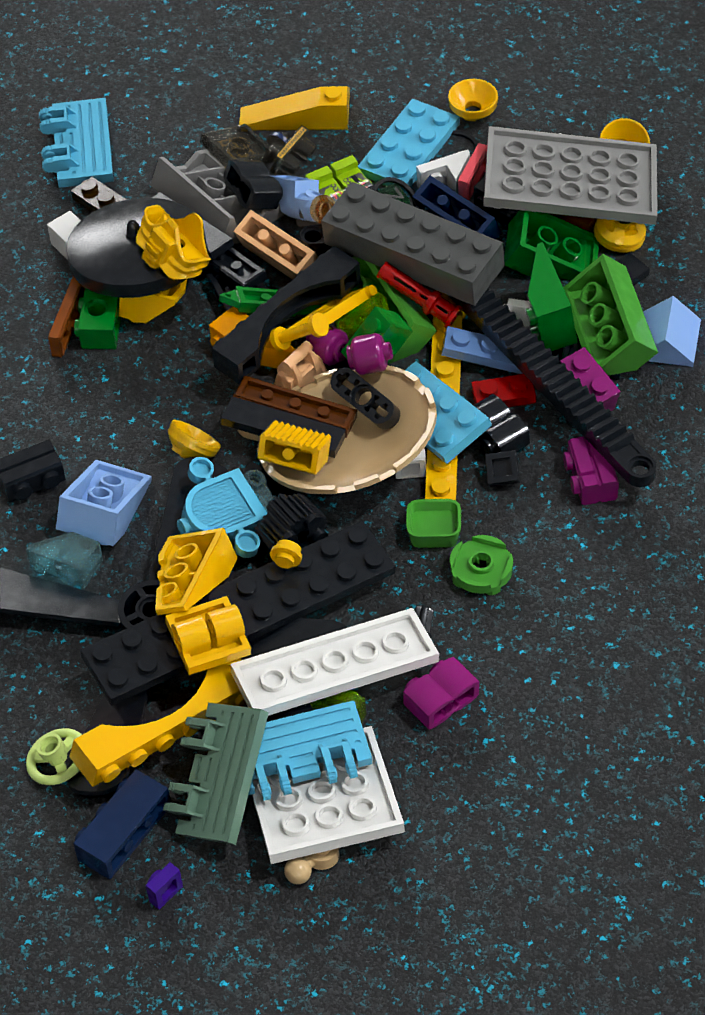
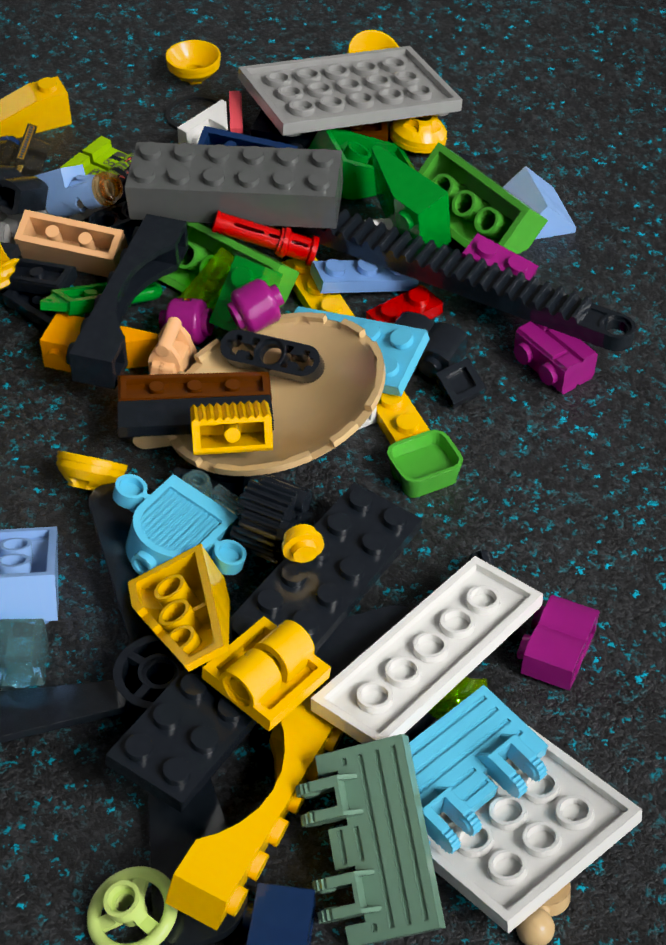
camera: 30 degrees left, 5 degrees down
(318, 321) = (170, 292): yellow piece -> none
(409, 142) = (149, 112): medium azure plate -> none
(481, 580) = (501, 505): bright green plate -> none

